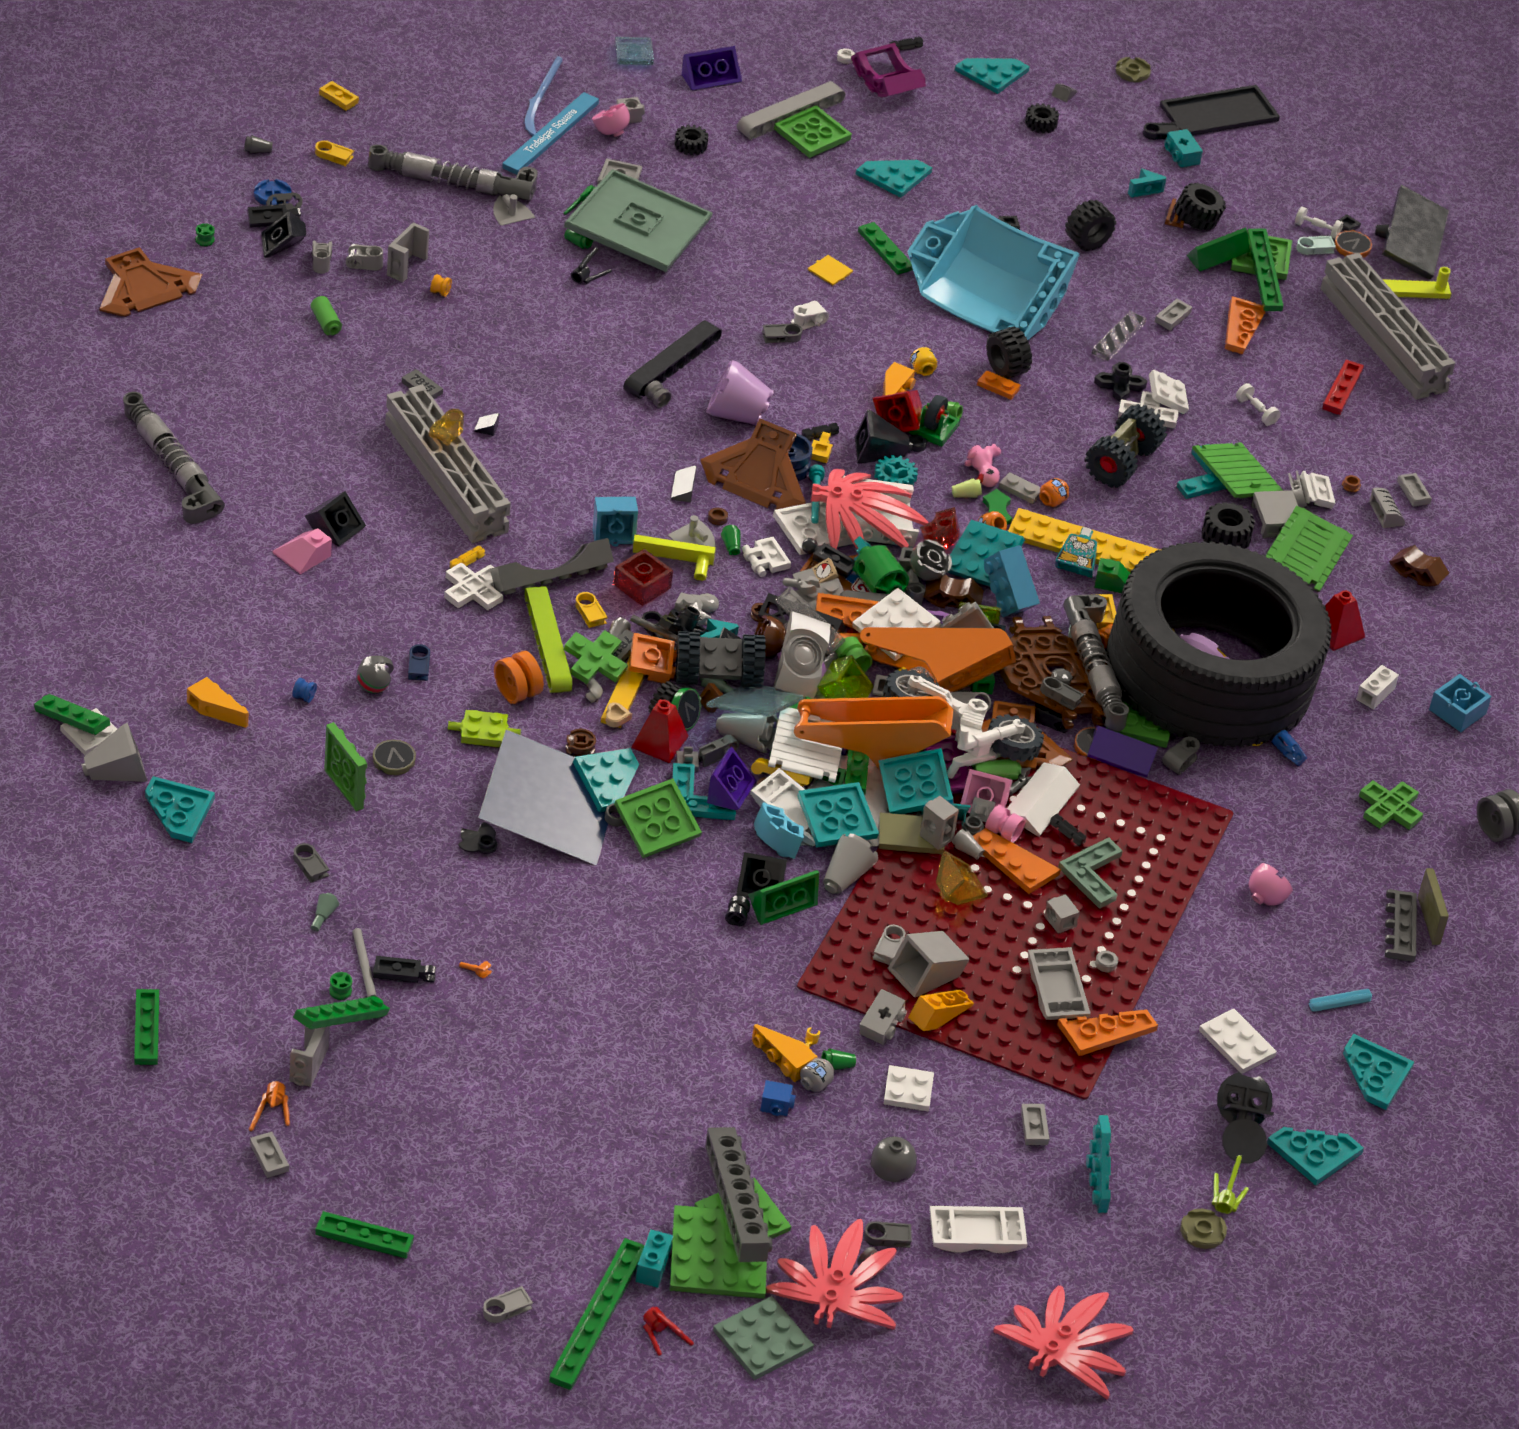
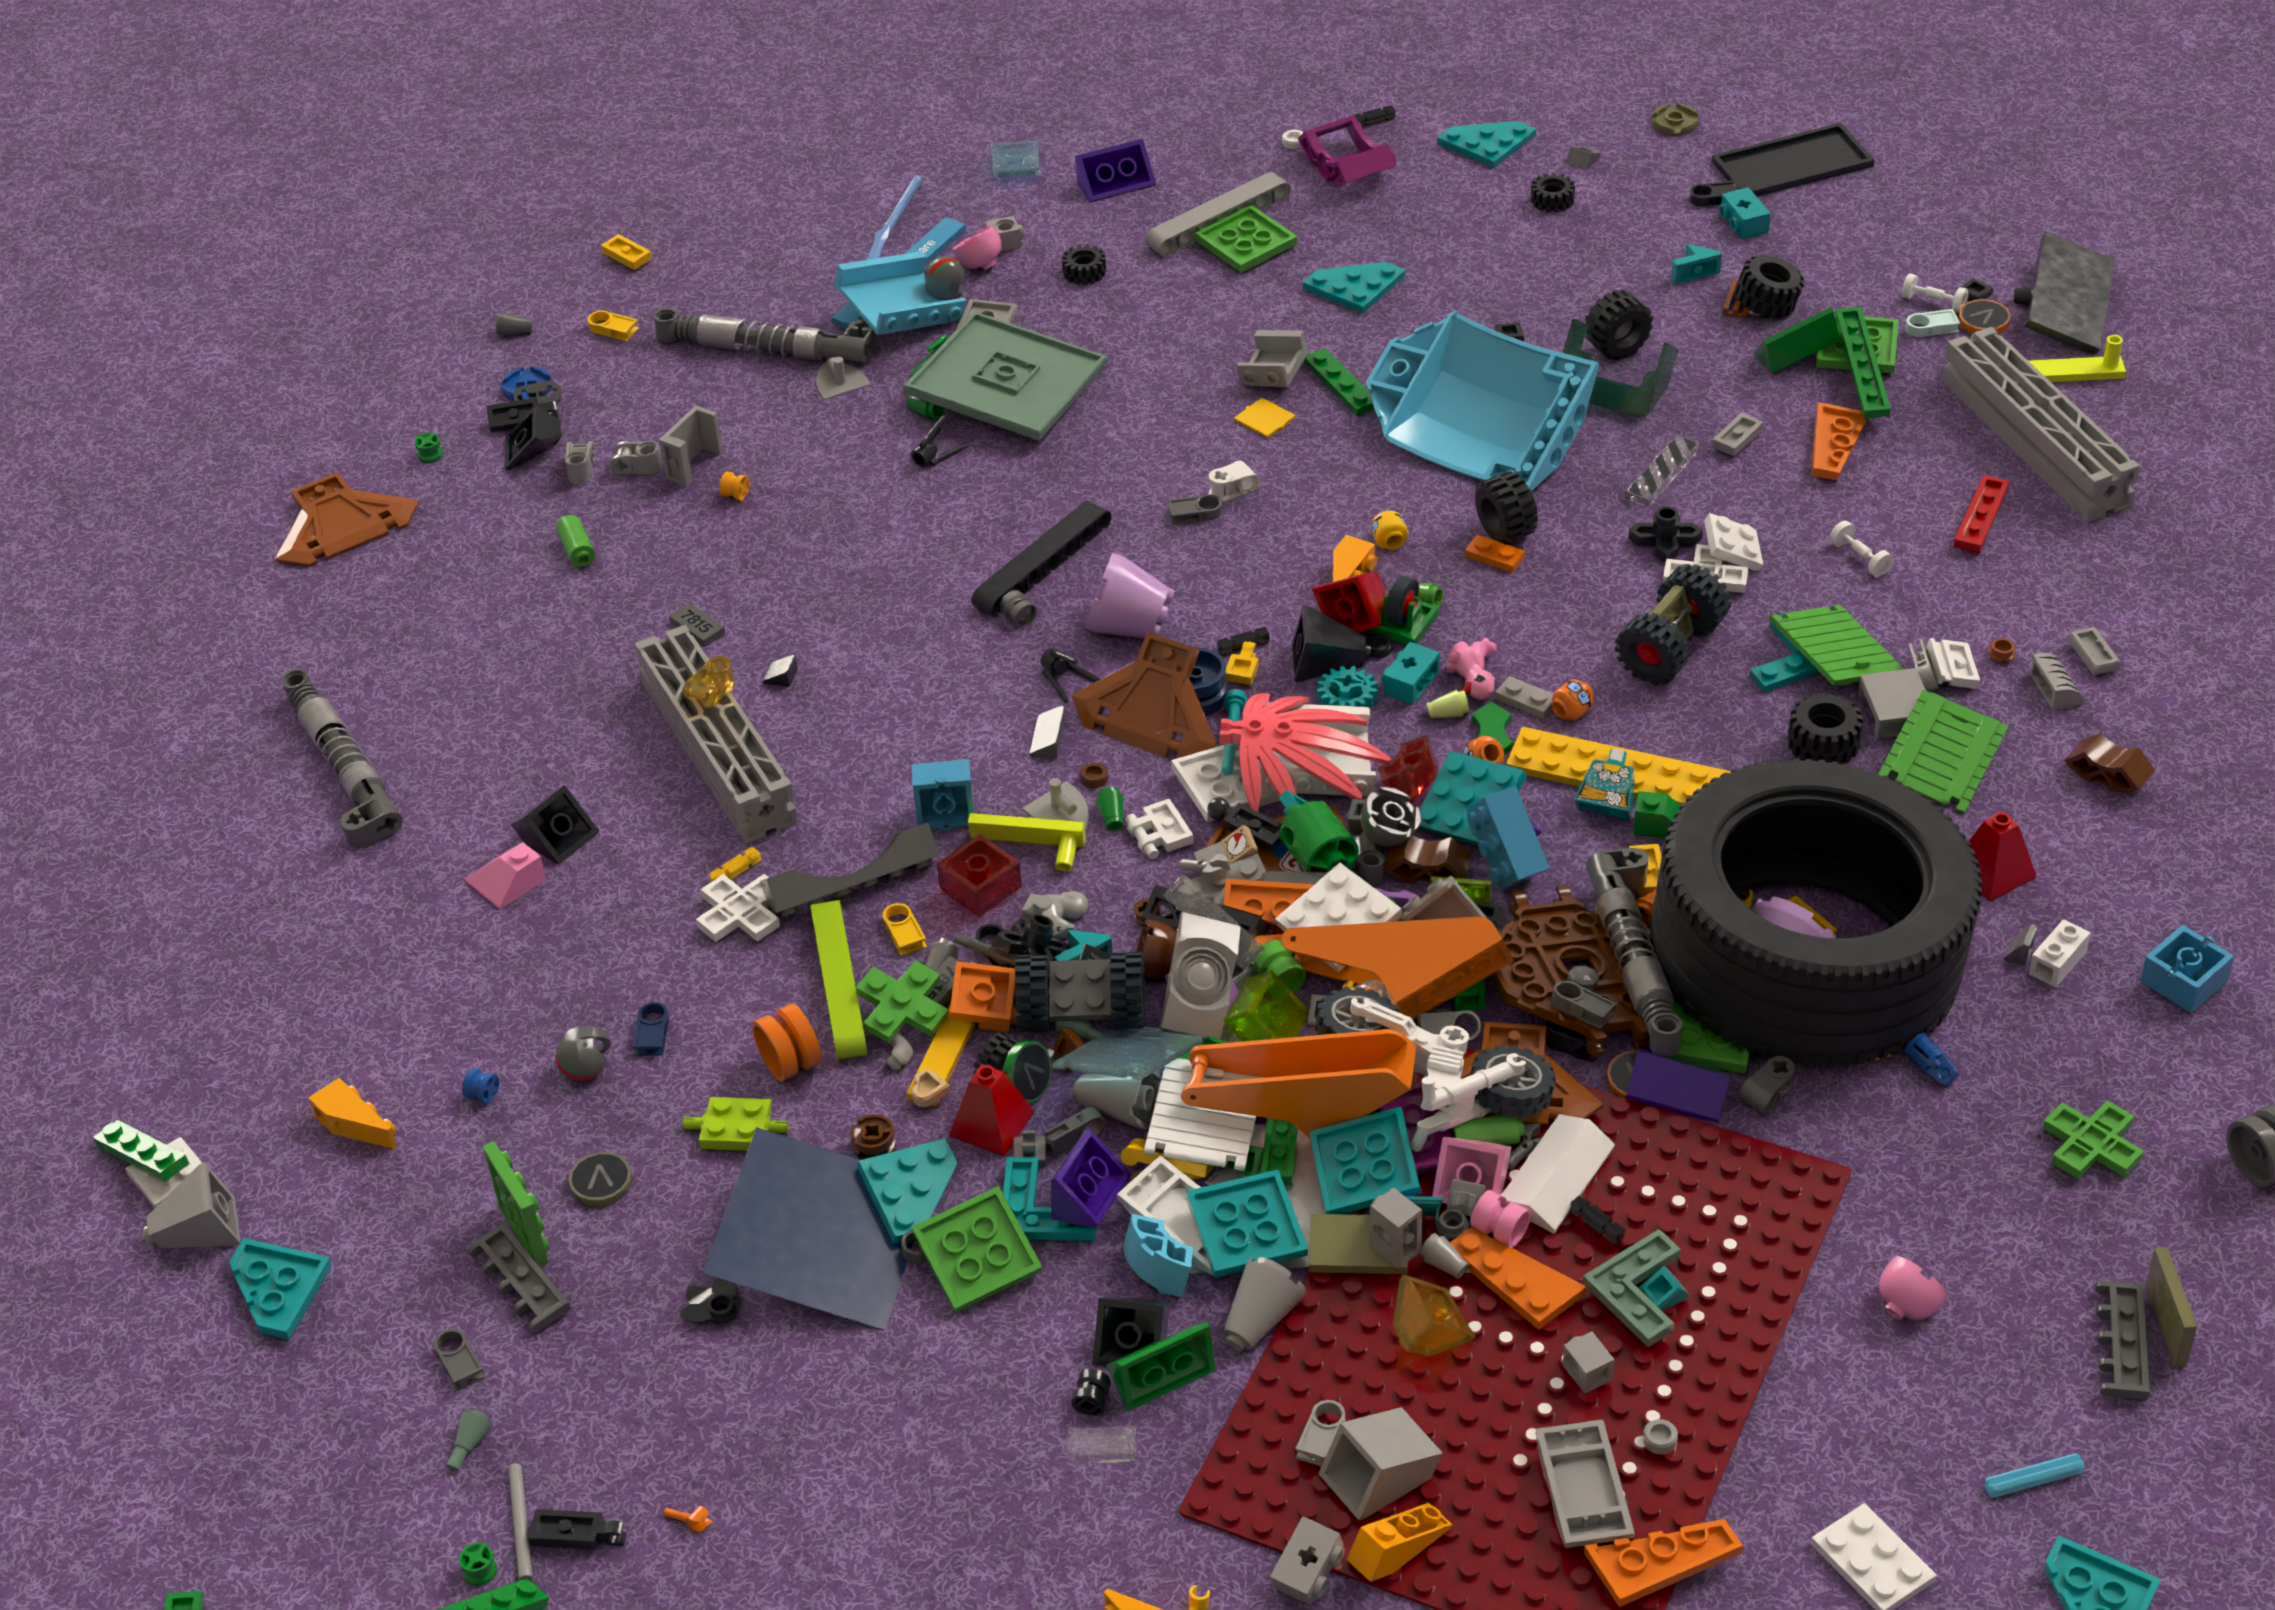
camera: 10 degrees right, 0 degrees up
(348, 813) = (522, 1276): none -> dark grey hinge
(552, 150) = (893, 294): none -> medium azure panel
(588, 140) = (944, 278): none -> dark grey helmet
(688, 435) = (1057, 664): none -> black plant
(745, 943) = (1102, 1444): none -> clear tile
(837, 226) = (1275, 359): none -> light grey panel
(940, 464) = (1410, 673): none -> teal brick
(1089, 278) = (1618, 395): none -> clear green windscreen
(1111, 874) = (1664, 1289): none -> teal slope
(1352, 680) = (2021, 946): none -> flat silver slope

